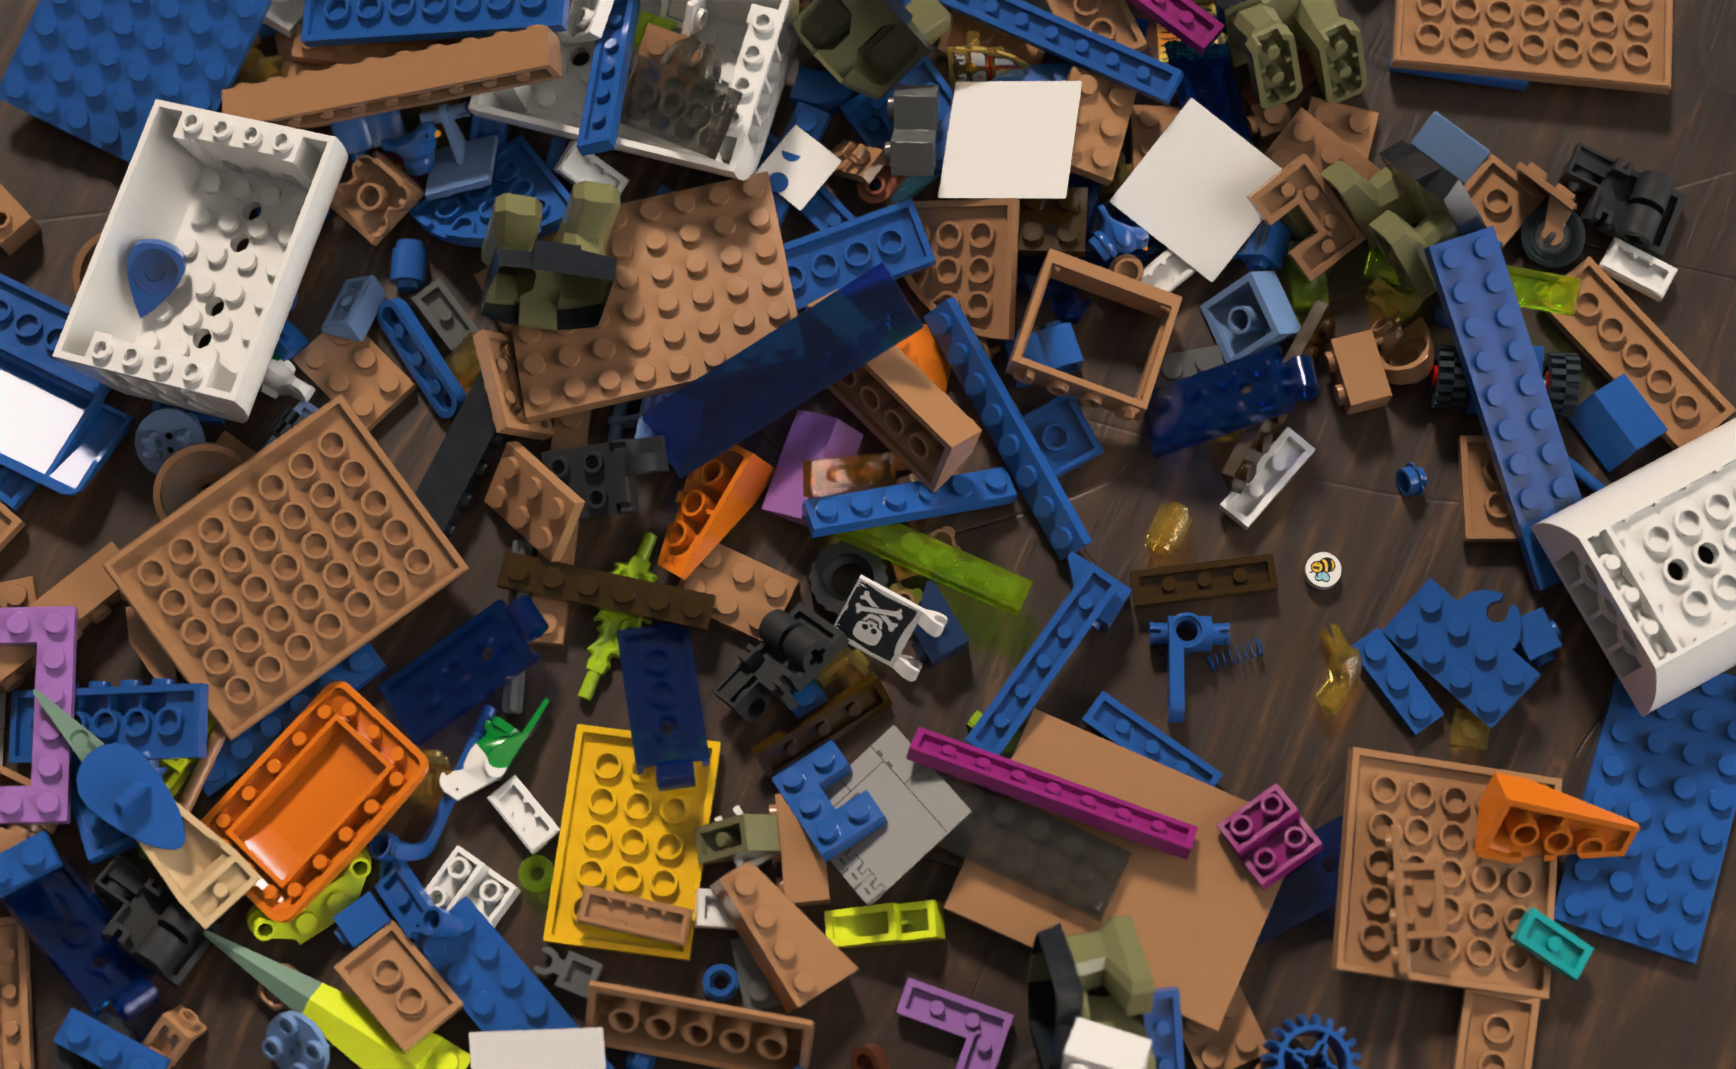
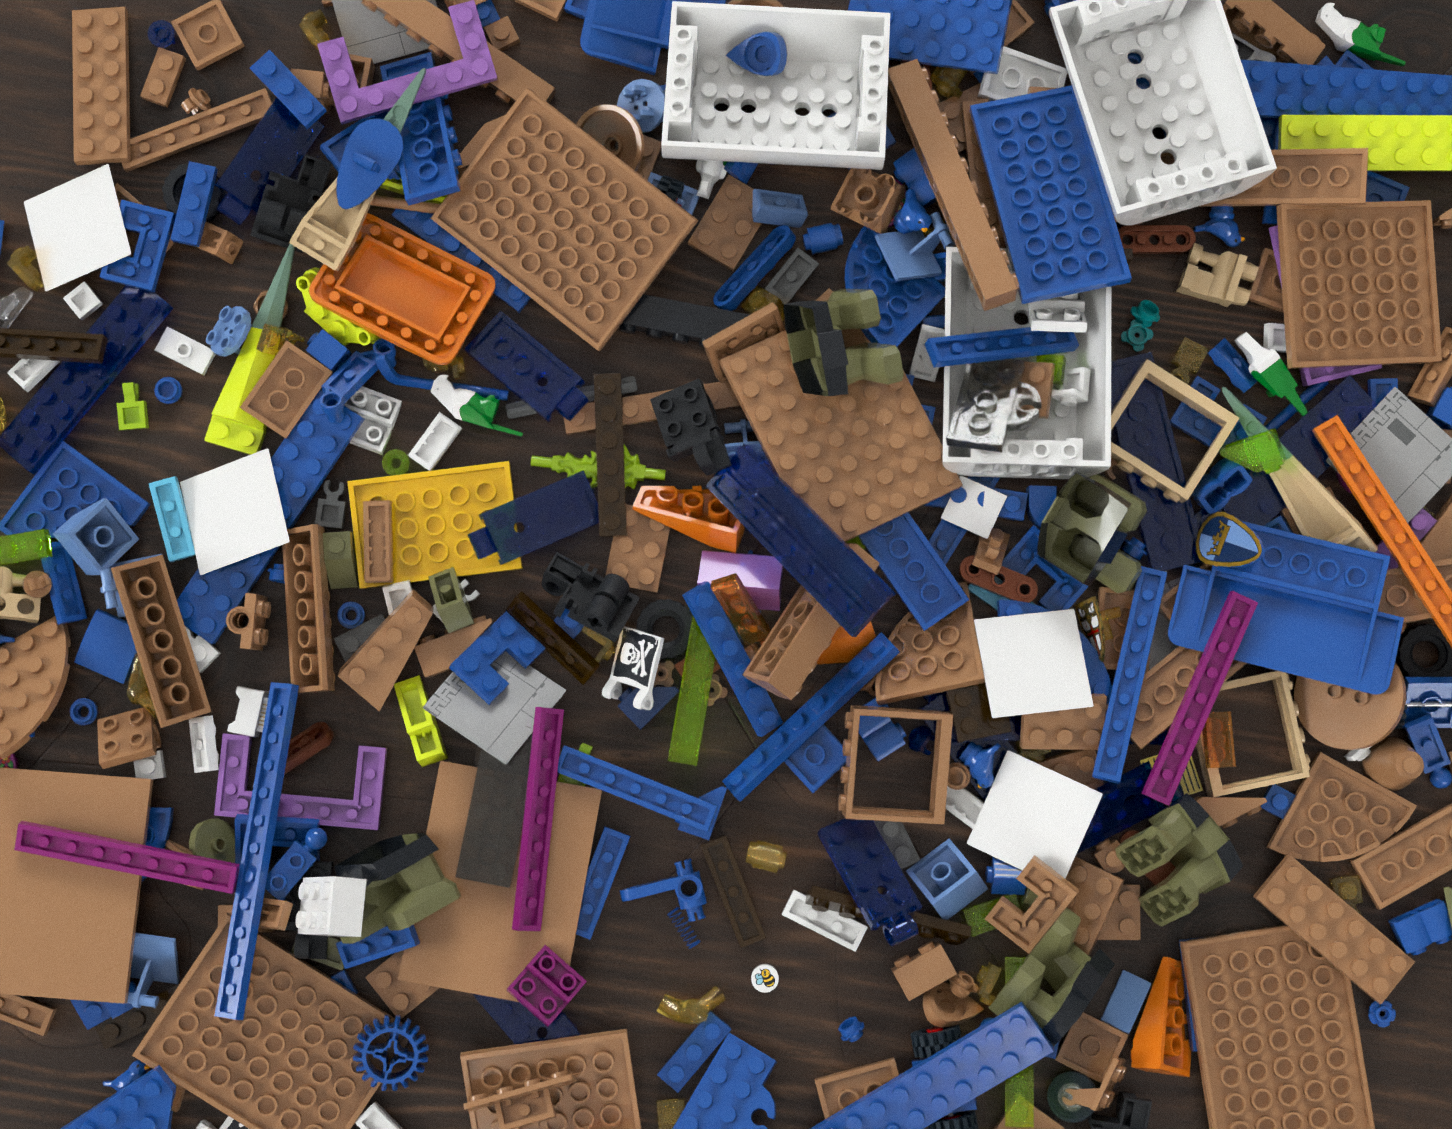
camera: 70 degrees right, 10 degrees up
(326, 984) = (274, 337): none -> clear yellow plate
(534, 501) = (661, 383): medium nougat plate -> none
(644, 972) = (340, 559): none -> olive slope
(915, 127) = (1032, 586): dark grey brick -> none
(1504, 120) = (1160, 1036): none -> orange wedge

